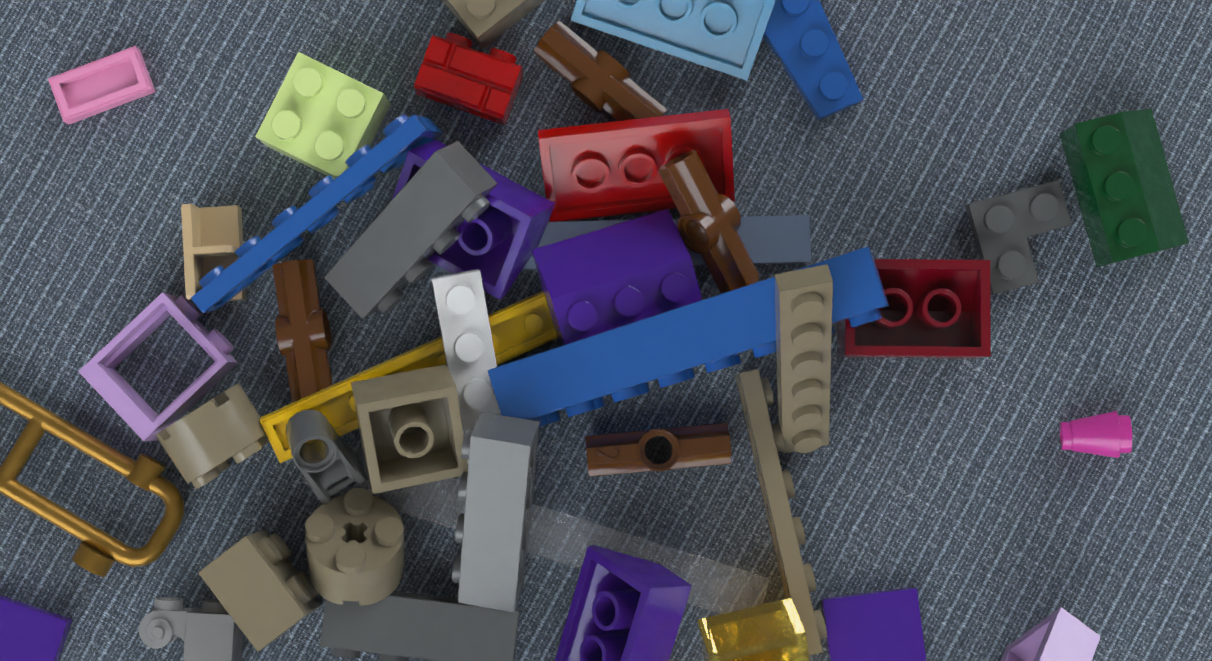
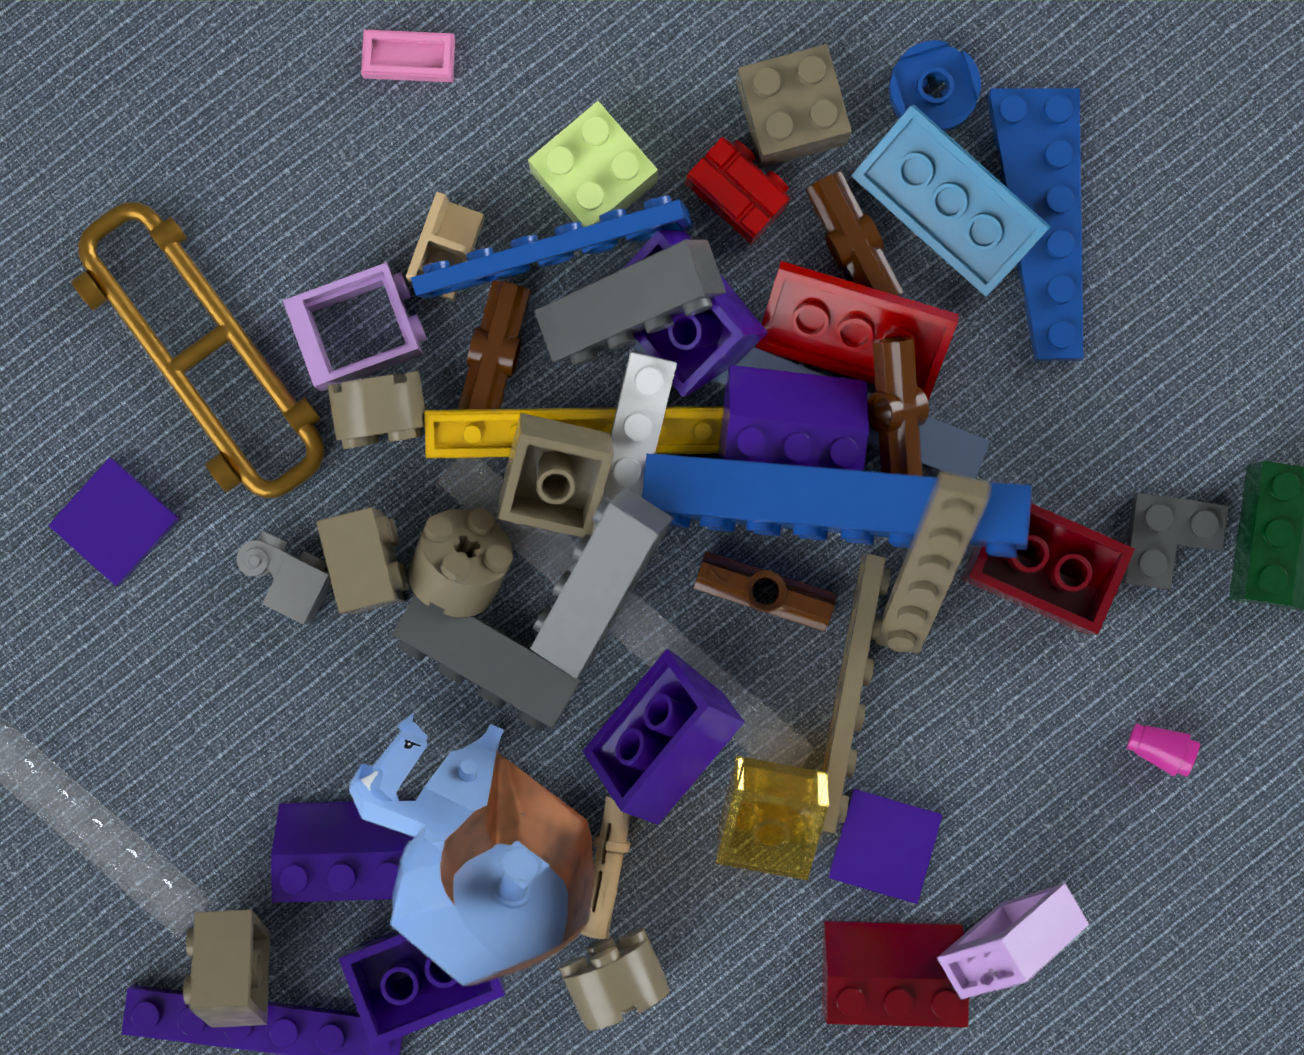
camera: 25 degrees right, 0 degrees up
(326, 462) = (467, 473): dark grey piece -> none

